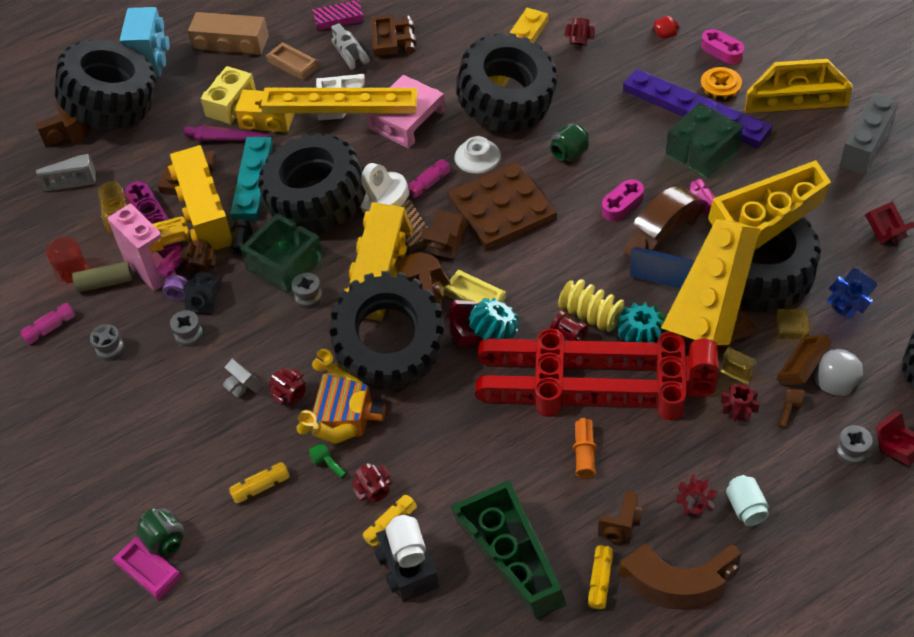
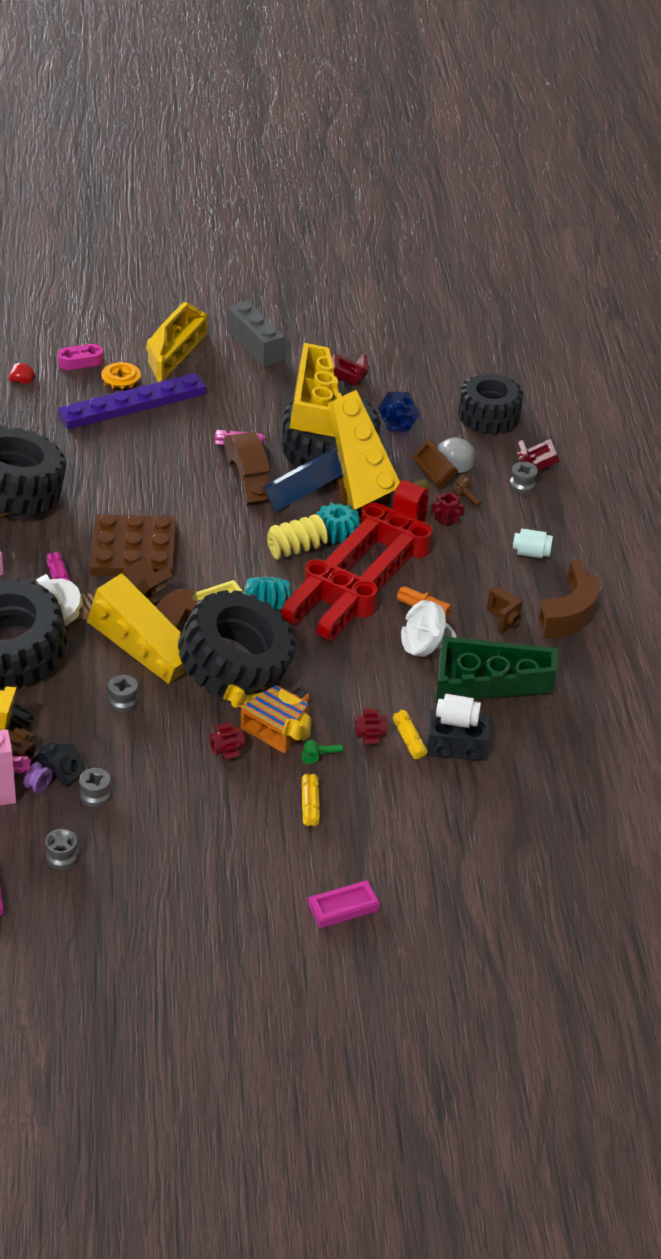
camera: 70 degrees left, 10 degrees down
(160, 532) = (319, 875): dark green head -> none
(240, 379) = (191, 768): light grey tile -> none
(276, 255) = (82, 691): clear green piece -> none
(477, 155) = (57, 536): white piece -> none
(530, 466) = (425, 628): none -> white tile
(568, 327) = (295, 559): dark red bush -> none
(569, 142) = (107, 476): dark green head -> none
(600, 577) = (526, 635): yellow axle -> none
(625, 202) = (198, 478): dark pink beam -> none
(701, 503) = (513, 564): dark red gear -> none
(711, 136) = (171, 401): clear green piece -> none
(793, 323) = (397, 455): clear yellow tile -> none

